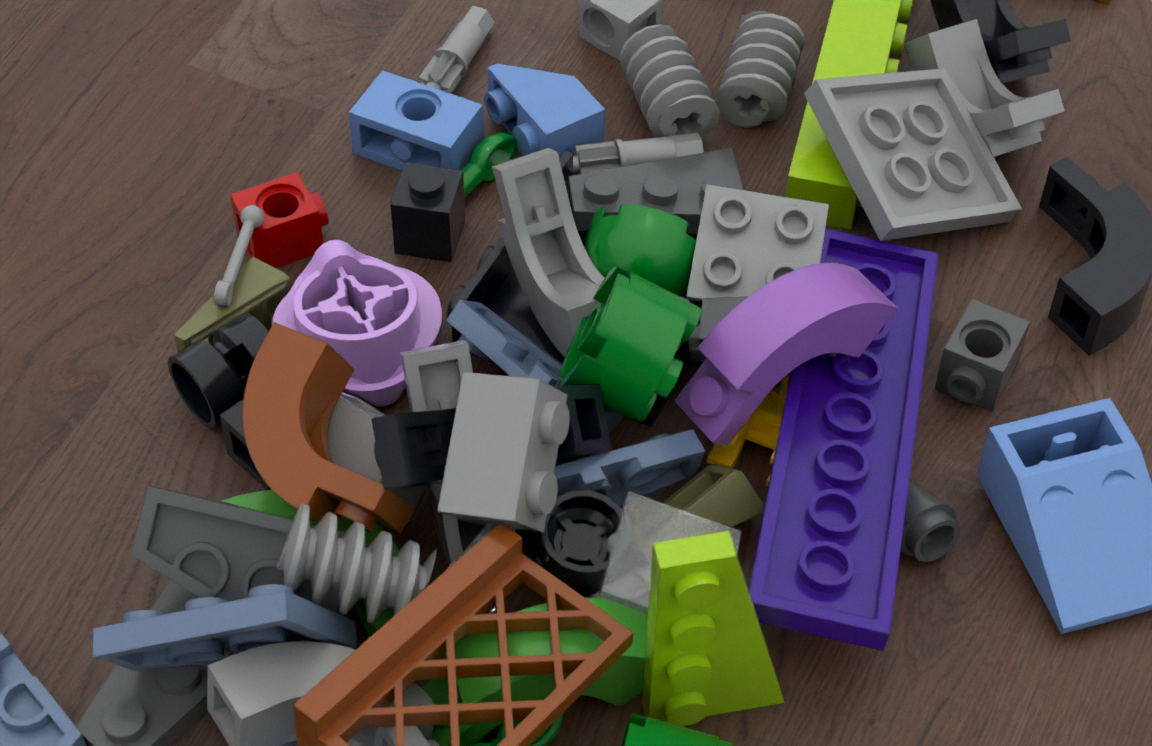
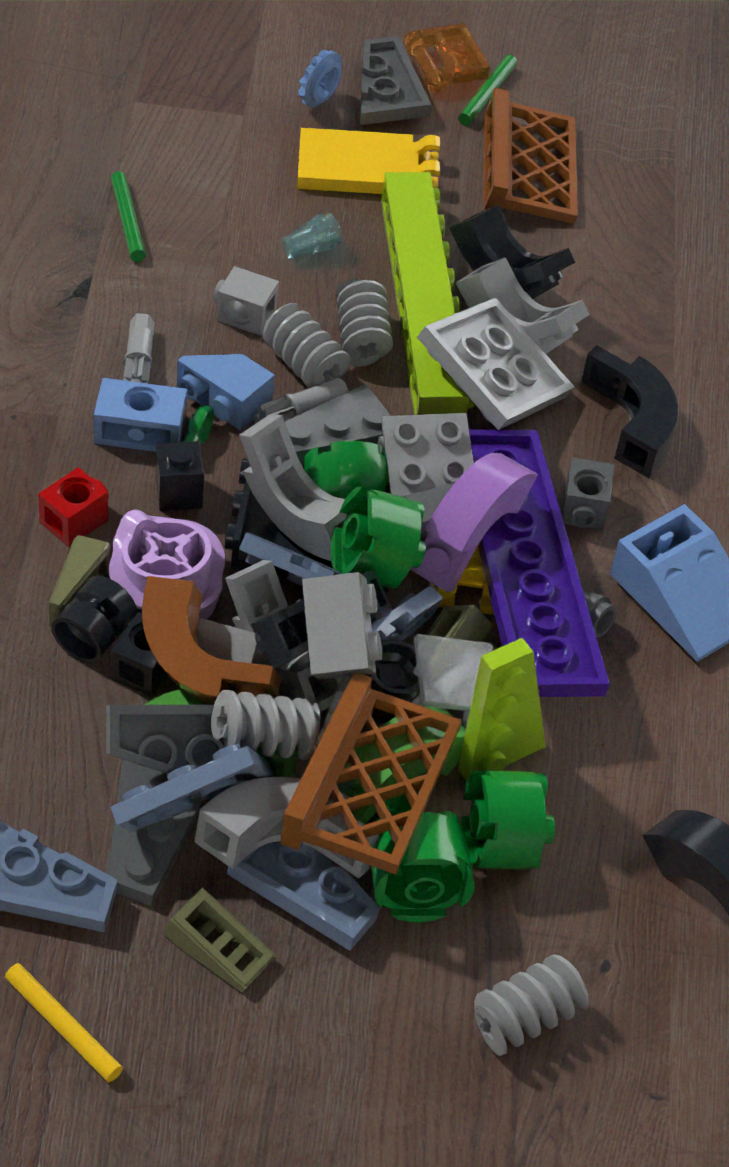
camera: 25 degrees left, 0 degrees up
(251, 218) = (66, 507): light grey hinge -> none

